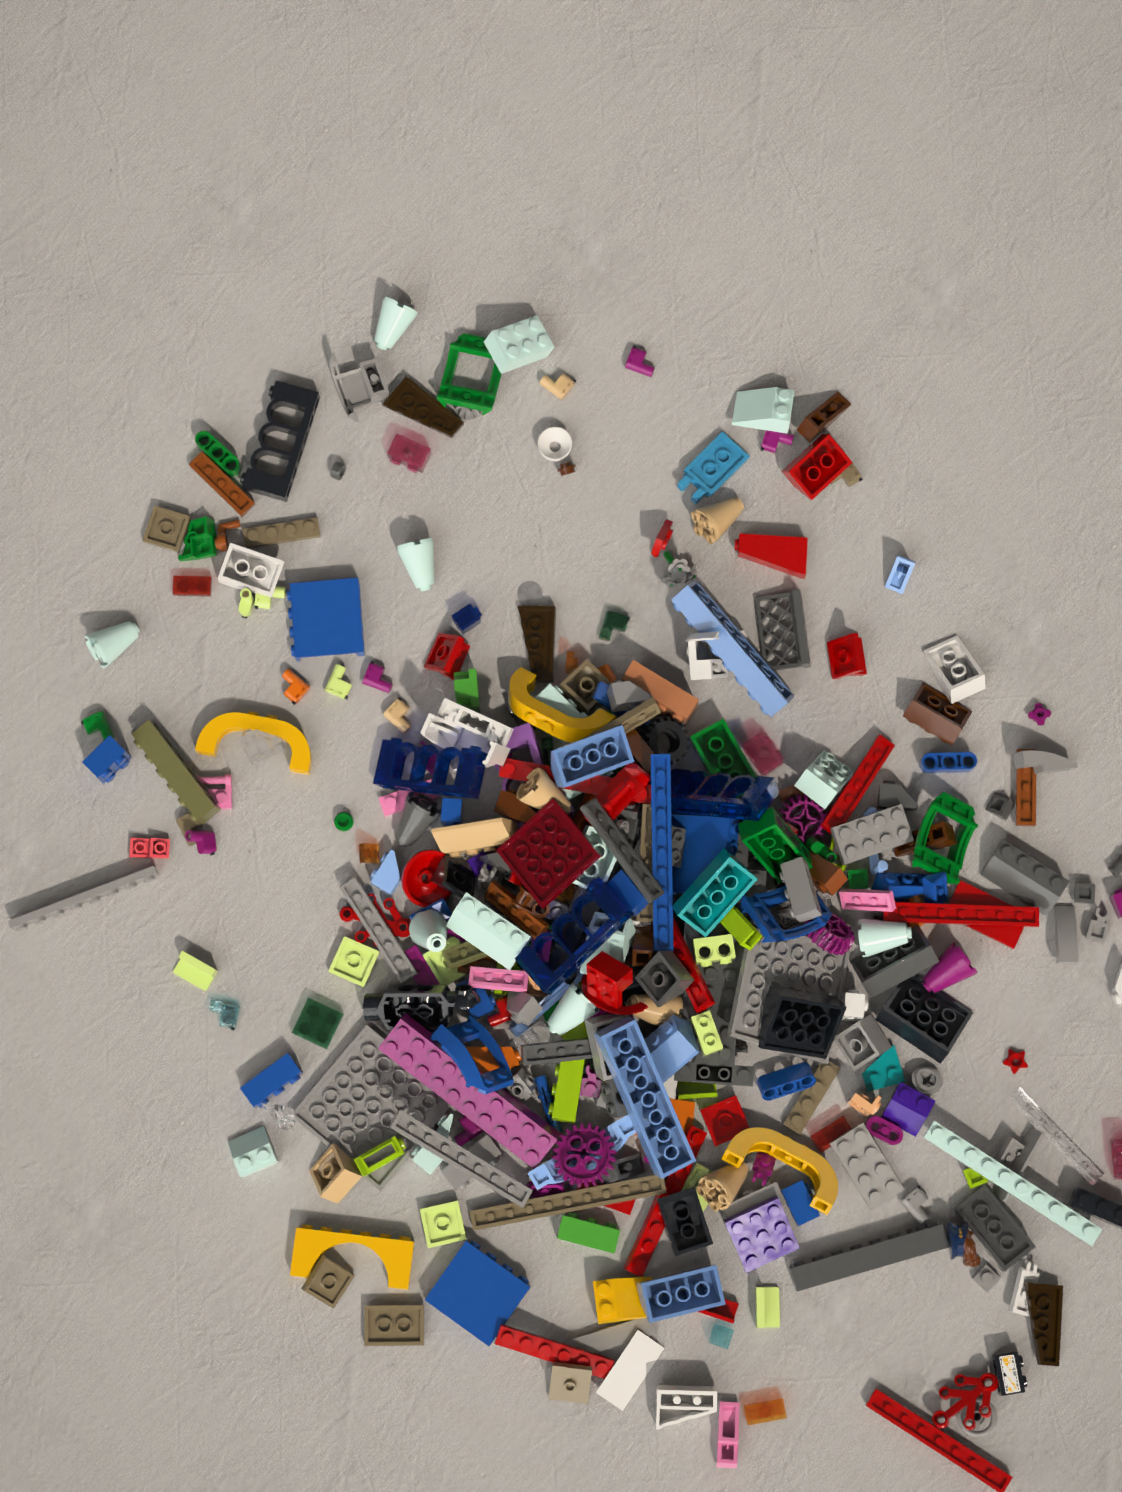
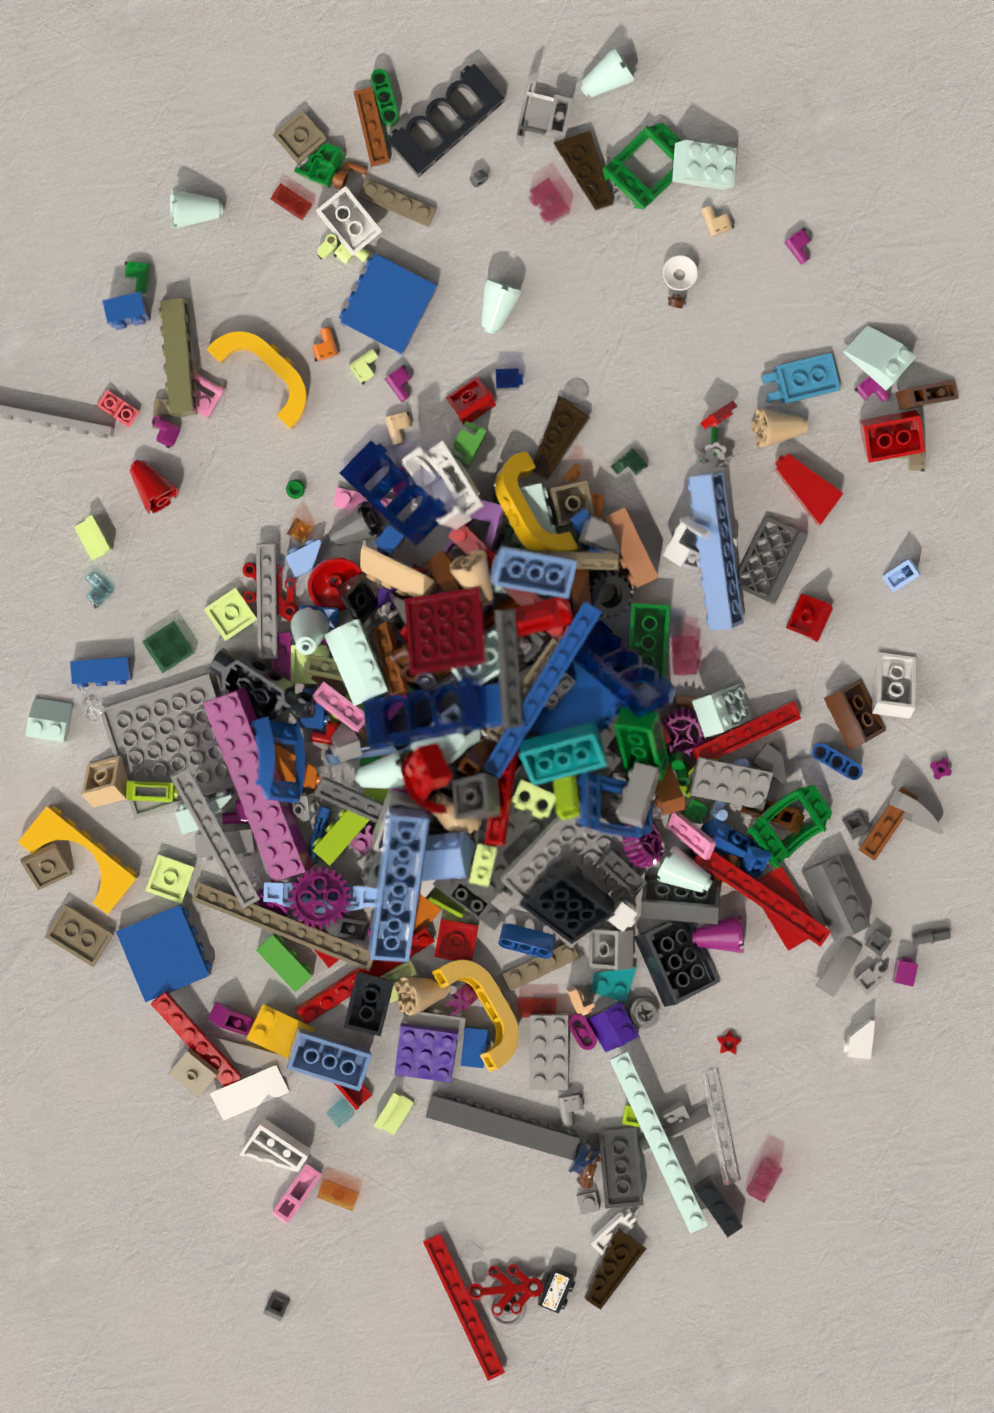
camera: 30 degrees right, 10 degrees up
(219, 894) = (152, 486): none -> red cone
(573, 1314) = (231, 1019): none -> magenta slope
(828, 968) = (621, 872): none -> dark grey plate

